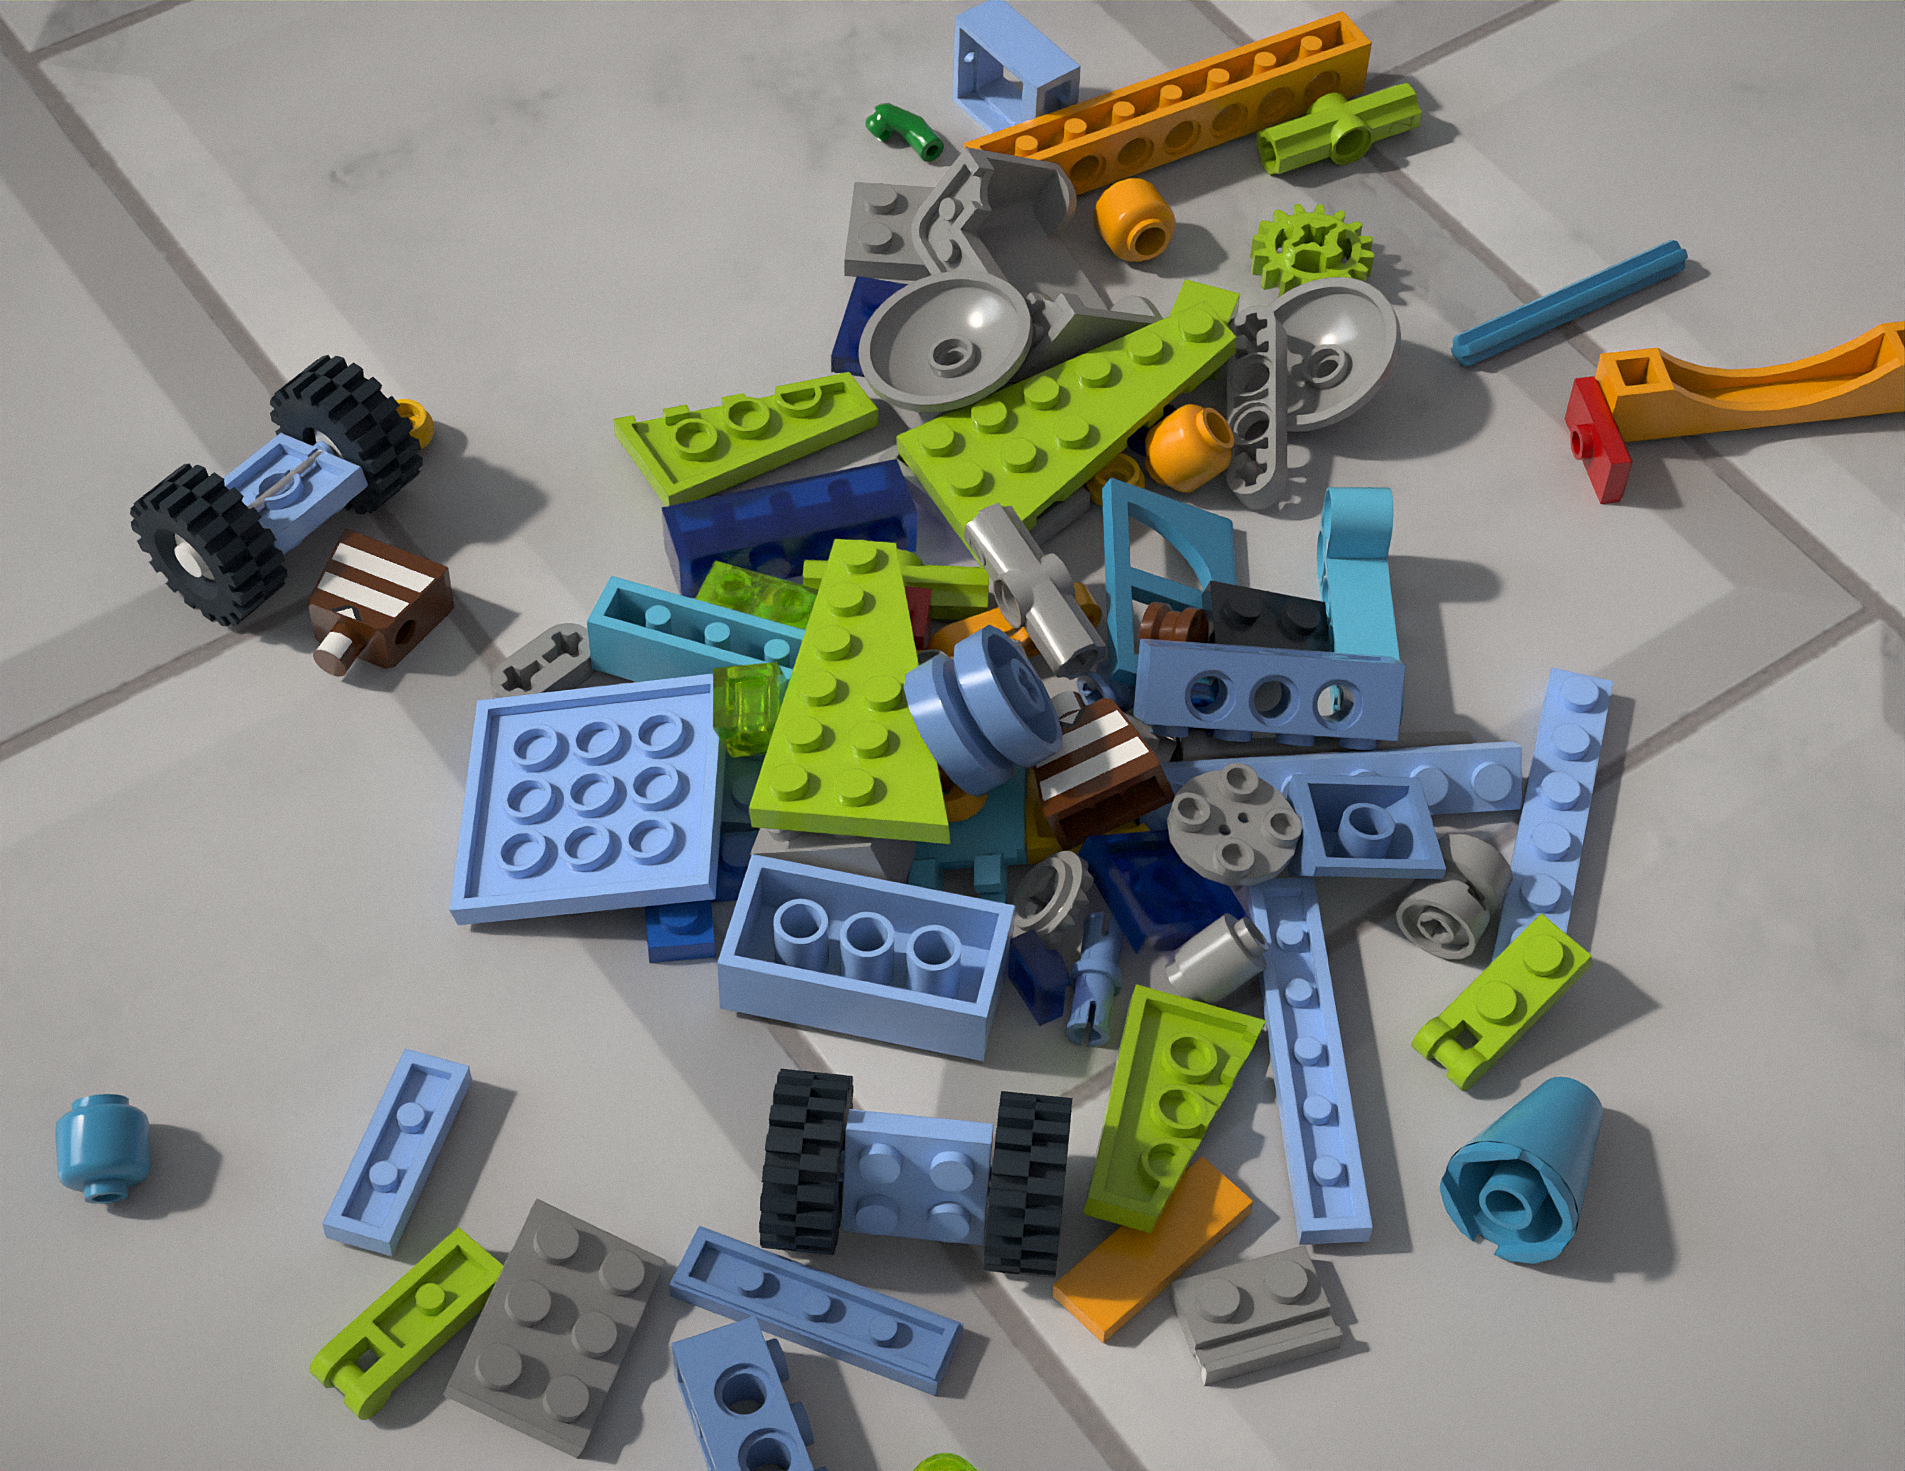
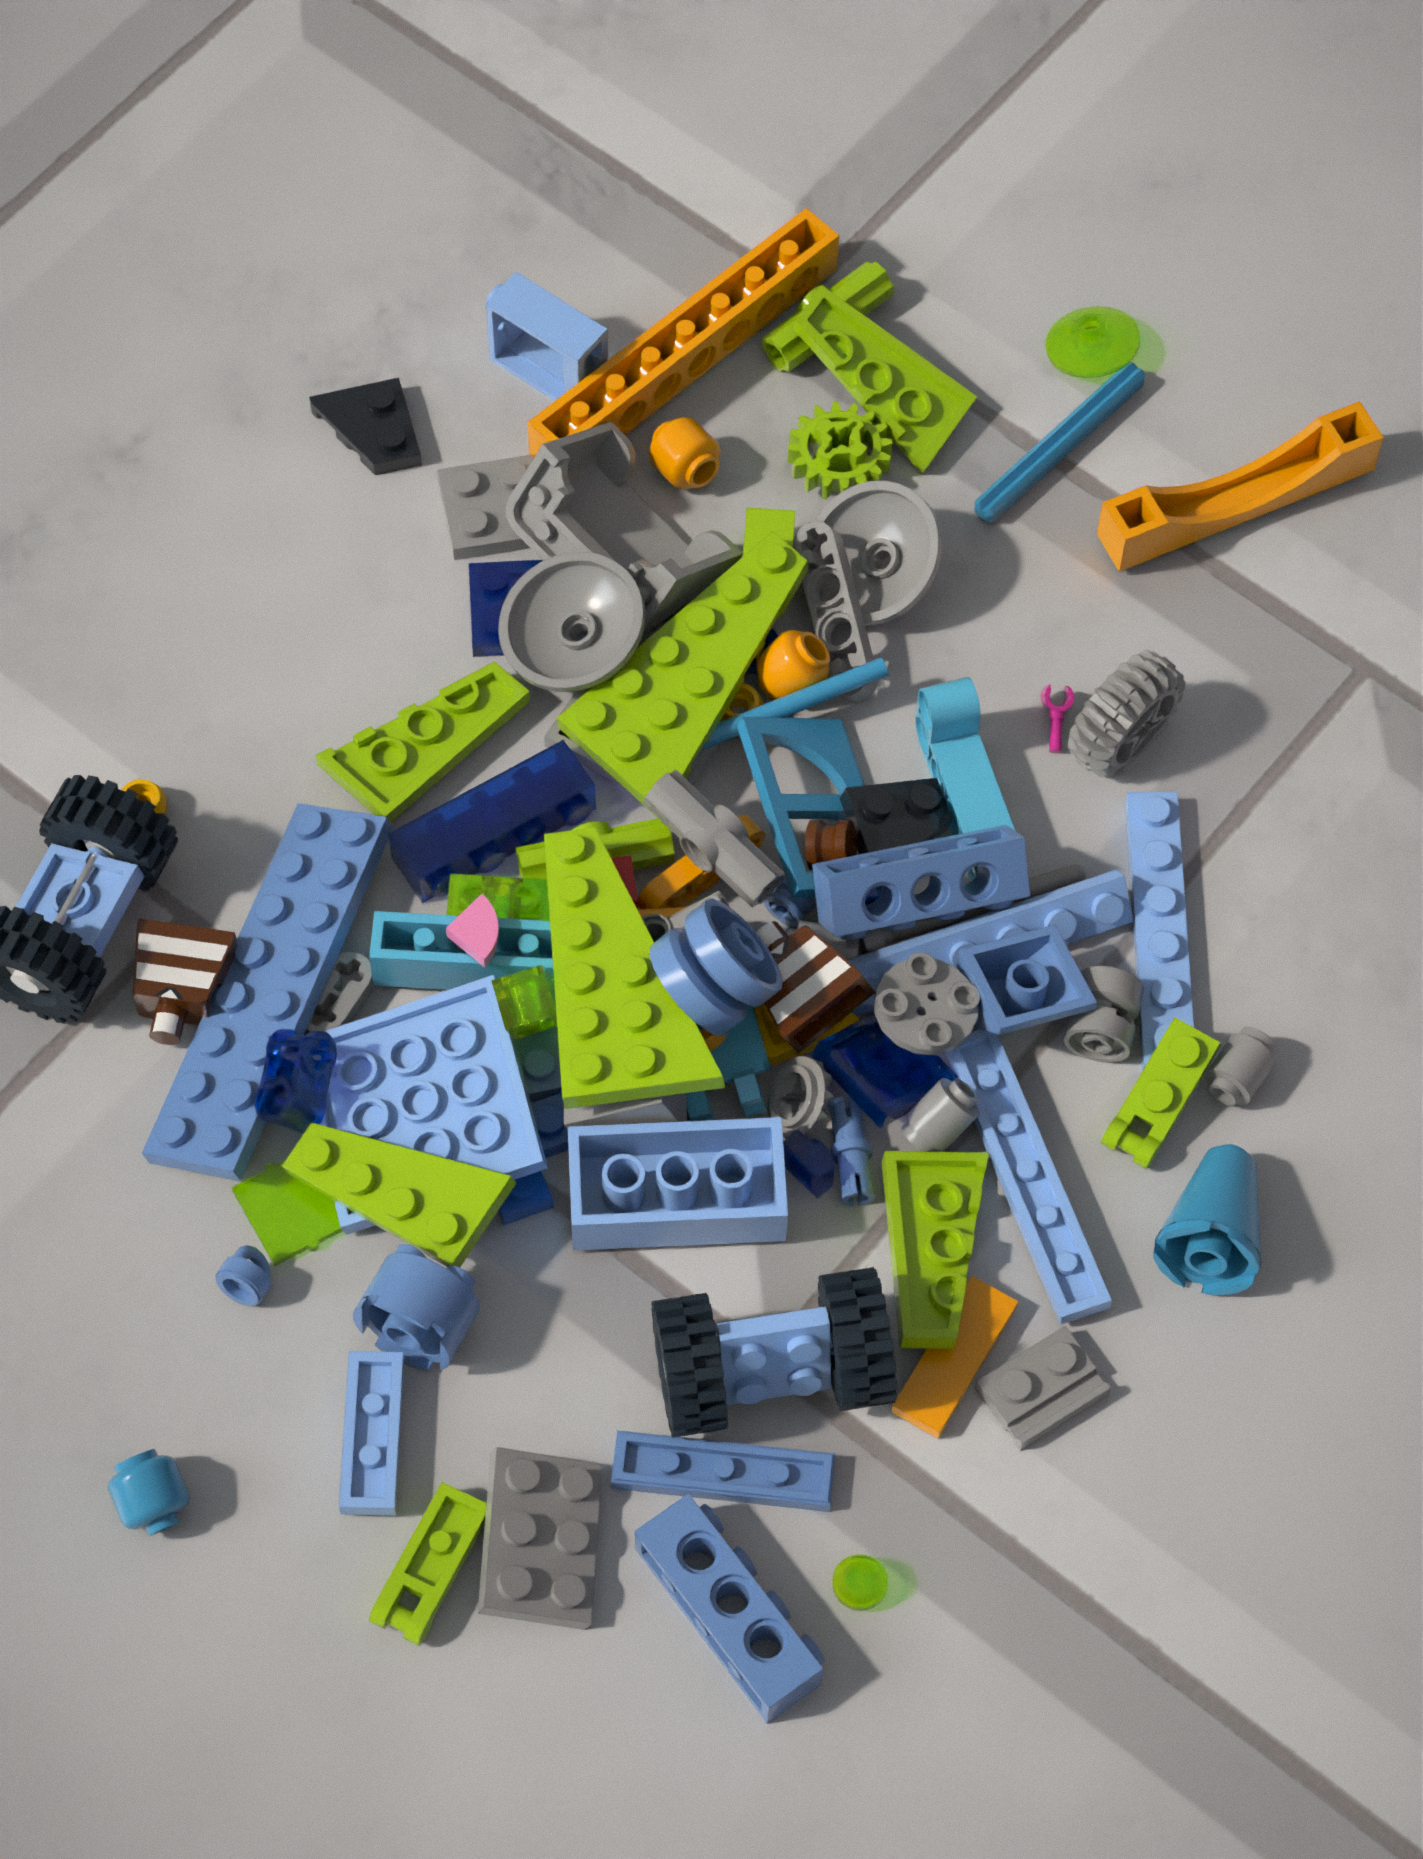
camera: 15 degrees left, 10 degrees up
(315, 941) = (245, 1279): none -> medium blue tile
(402, 879) = (286, 1213): none -> clear neon green piece
(449, 738) = (295, 1083): none -> clear blue piece
(463, 648) = (270, 986): none -> medium blue plate
(502, 1016) = (418, 1308): none -> medium blue brick
(536, 885) = (406, 1192): none -> lime wing
(718, 618) = (476, 930): none -> bright pink tile
(800, 129) = (372, 423): none -> black wing
(909, 125) = (464, 399): green arm -> none
(1192, 480) = (803, 698): none -> dark azure bar
(1409, 217) = (885, 376): none -> lime wing
(1487, 573) = (1056, 716): none -> dark pink hand
(1571, 576) = (1126, 713): none -> light grey gear
(1597, 440) = (1114, 573): red plate -> none
(1613, 998) = (1241, 1066): none -> light grey brick
(1635, 214) = (1092, 341): none -> clear neon green dish

